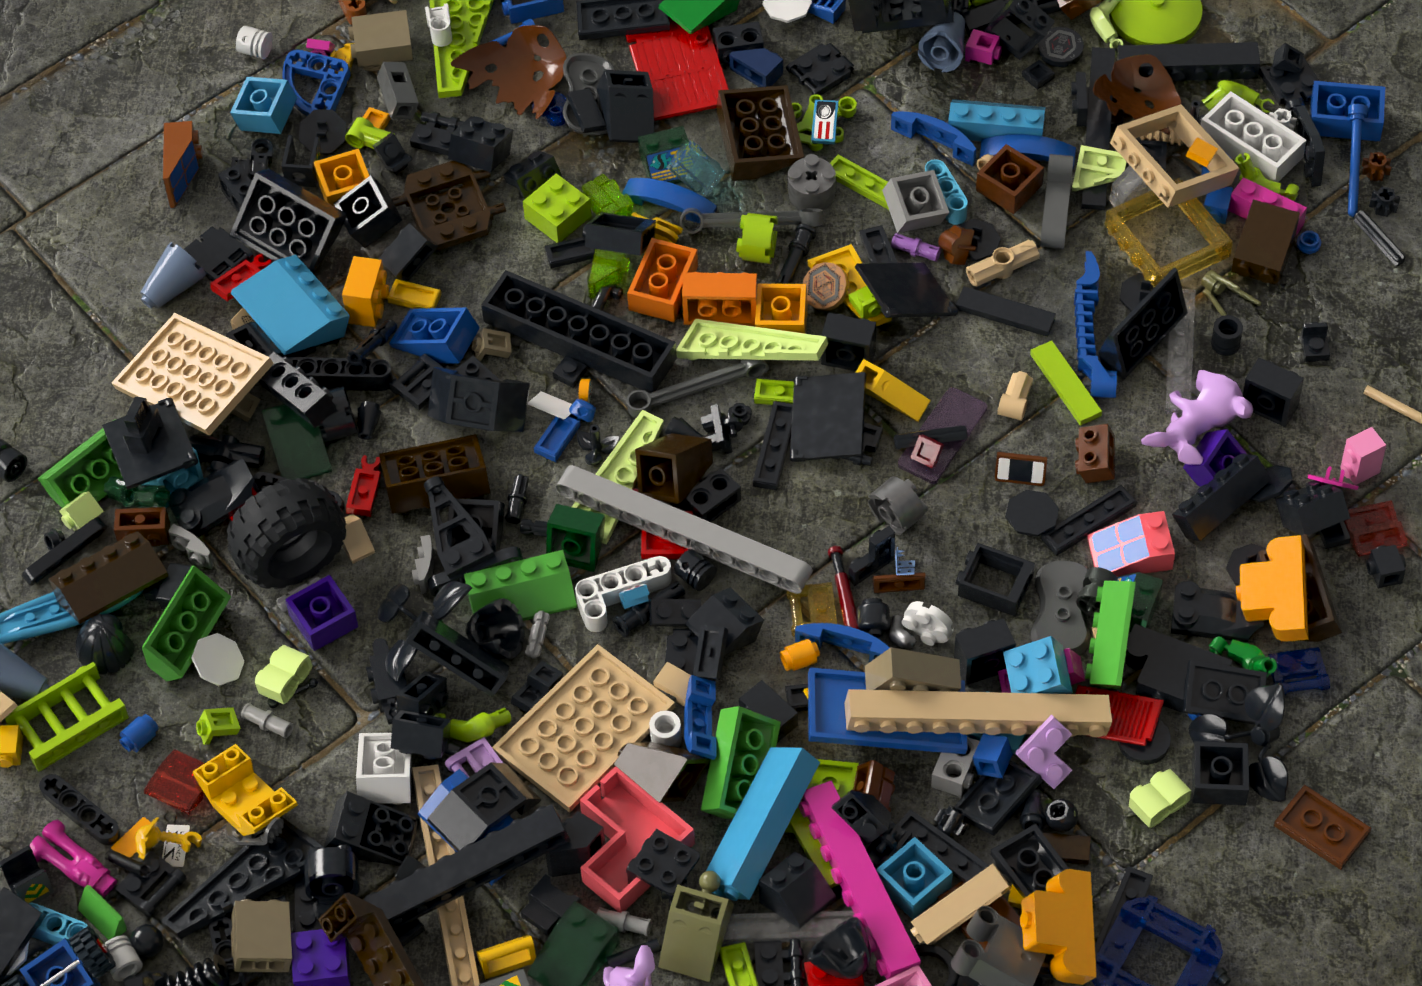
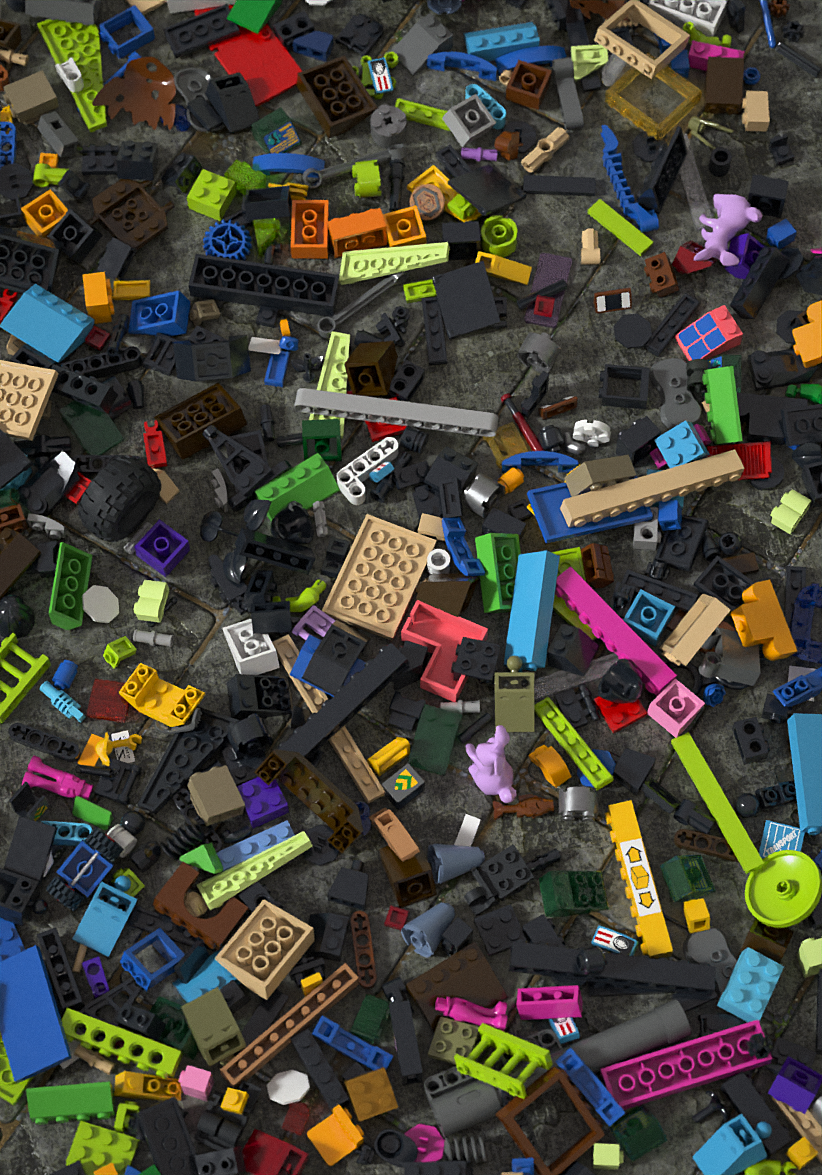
camera: 20 degrees left, 10 degrees up
(122, 765) = (62, 701): none -> medium azure hinge
(346, 340) = (97, 338): none -> dark red plate
(551, 258) = (213, 239): none -> blue gear
(696, 168) = (302, 137): clear light blue brick -> none
(755, 661) = (483, 495): none -> flat silver brick
(863, 814) = (603, 585): black slope -> none
(896, 91) = (423, 39): none -> dark grey slope
(901, 350) = (499, 236): none -> lime brick
(903, 571) = (555, 393): light blue piece -> none
(1040, 751) = (702, 501): lavender plate -> none
(1132, 448) = (685, 256): none -> dark red slope
(1201, 152) = (661, 30): light orange tile -> none
(1275, 446) = (781, 234): none -> blue brick
(1297, 286) = (755, 111): none -> tan brick

